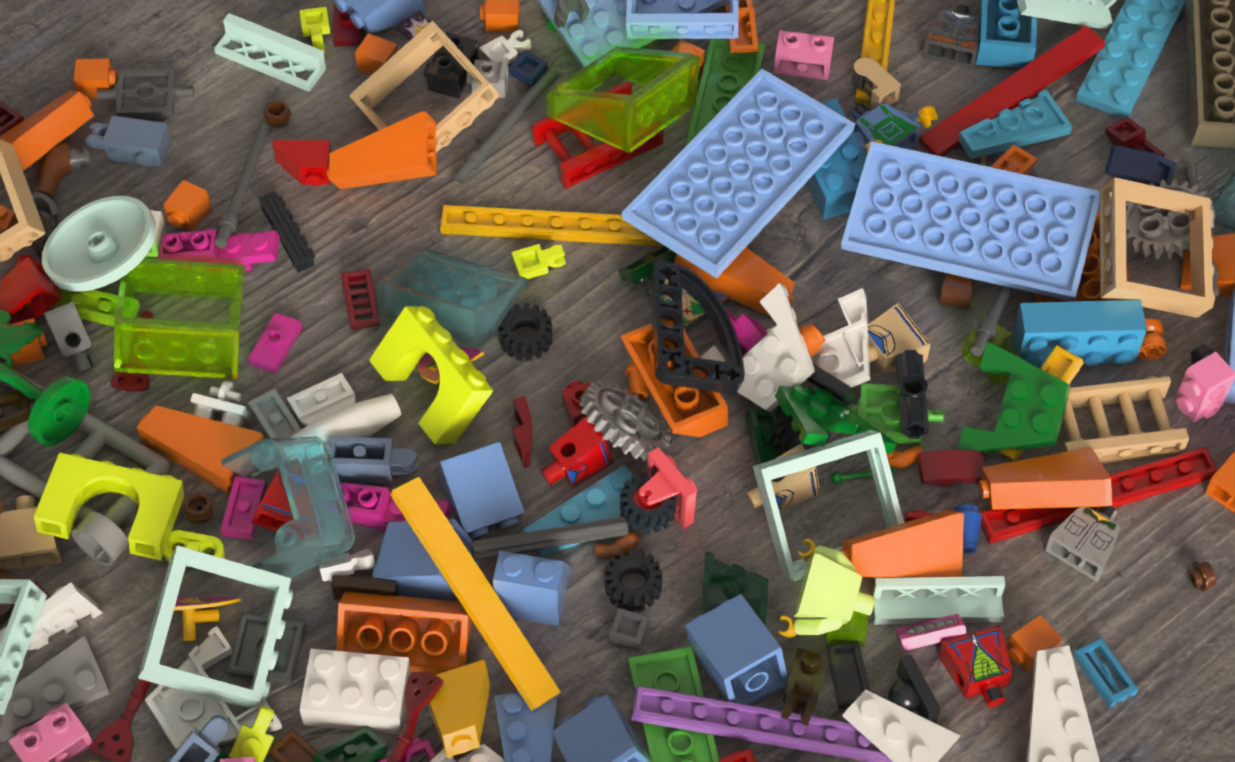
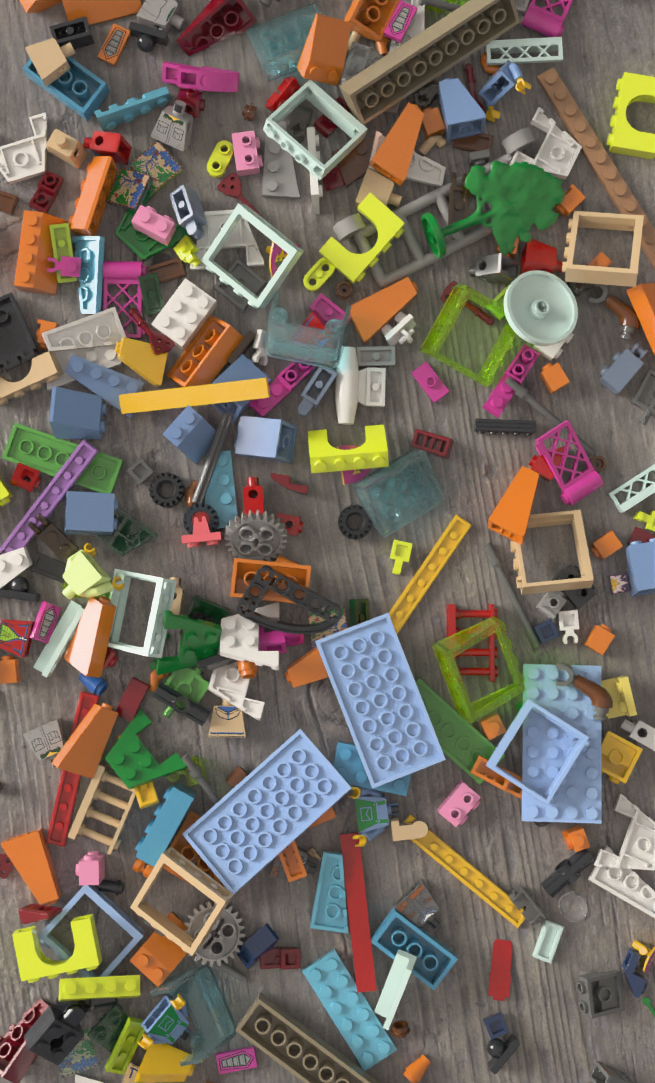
camera: 120 degrees right, 30 degrees up
(309, 112) = (577, 486): none -> dark pink piece

